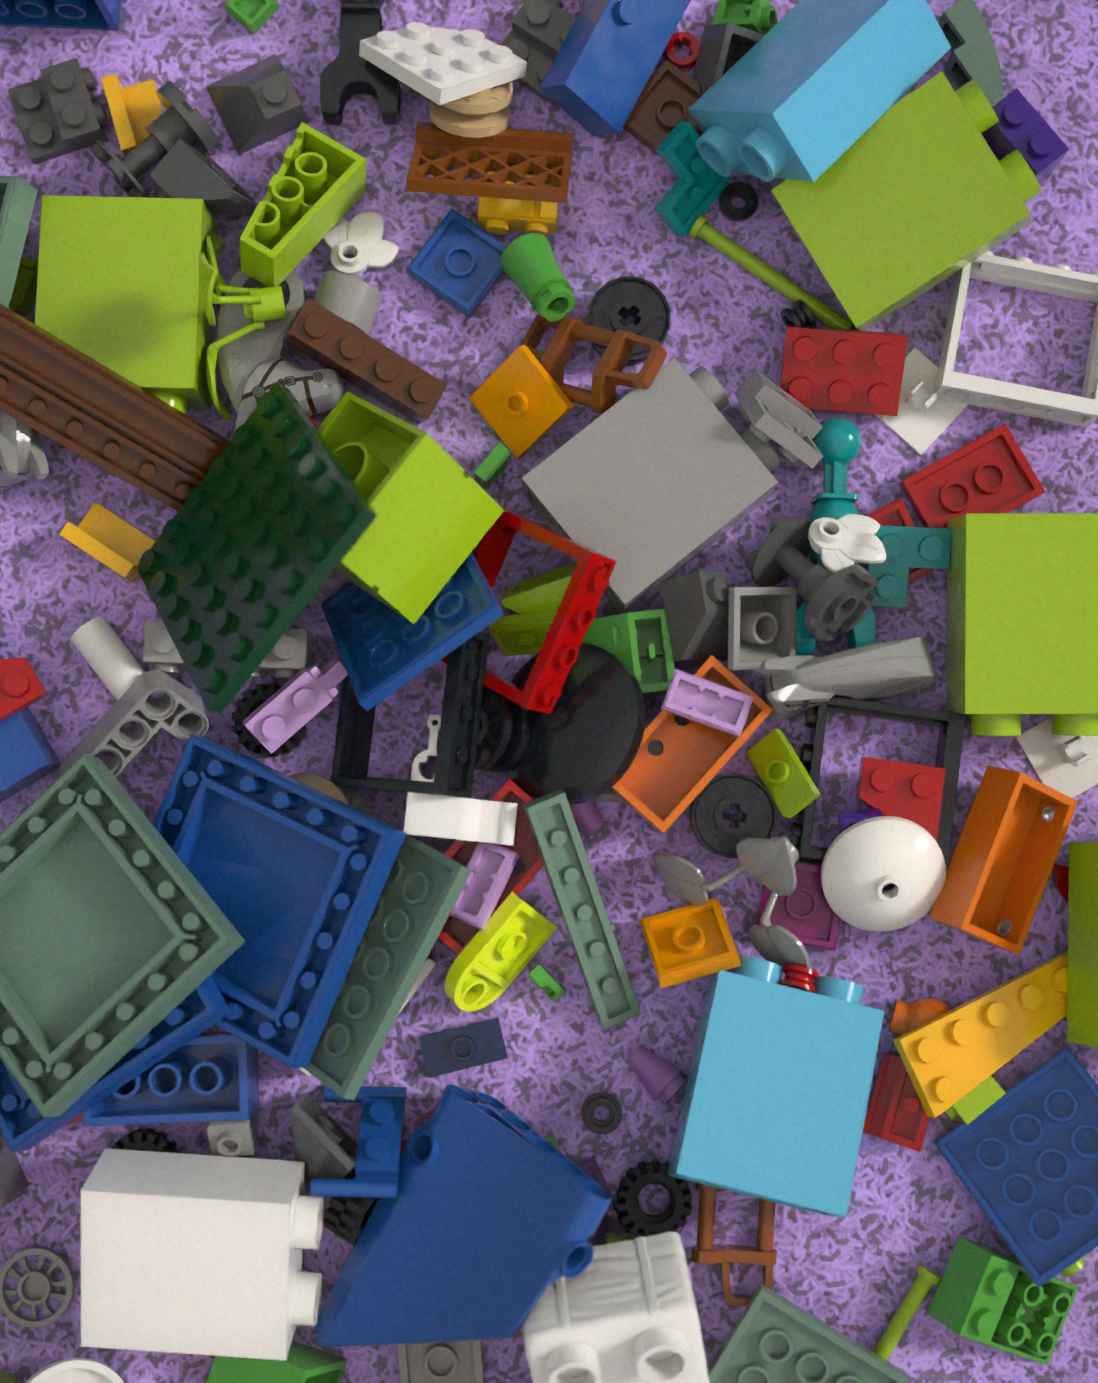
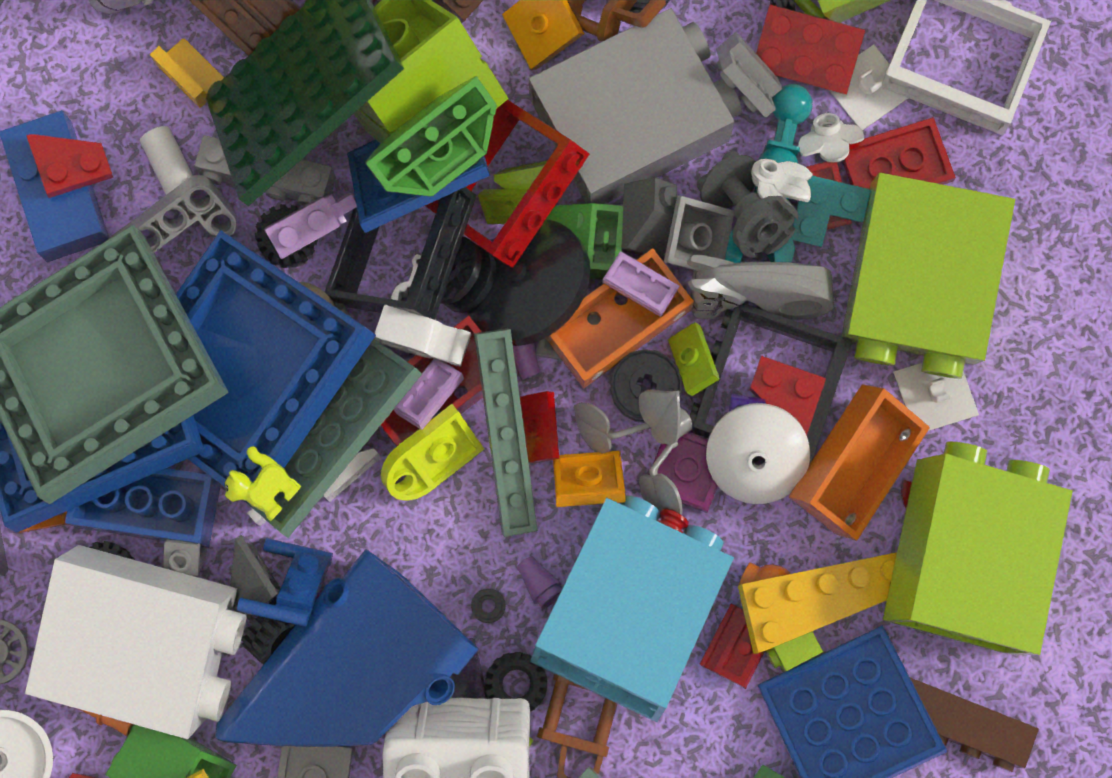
camera: 10 degrees right, 5 degrees down
(313, 1054) = (266, 486): none -> neon yellow animal
(431, 590) = (436, 142): none -> bright green wedge
(463, 1047) = (386, 530): dark blue plate -> none
(493, 466) = (510, 69): bright green tile -> none
(546, 982) = (465, 490): bright green tile -> none
(619, 889) = (540, 426): none -> red plate
(889, 474) = (830, 138): none -> white plate

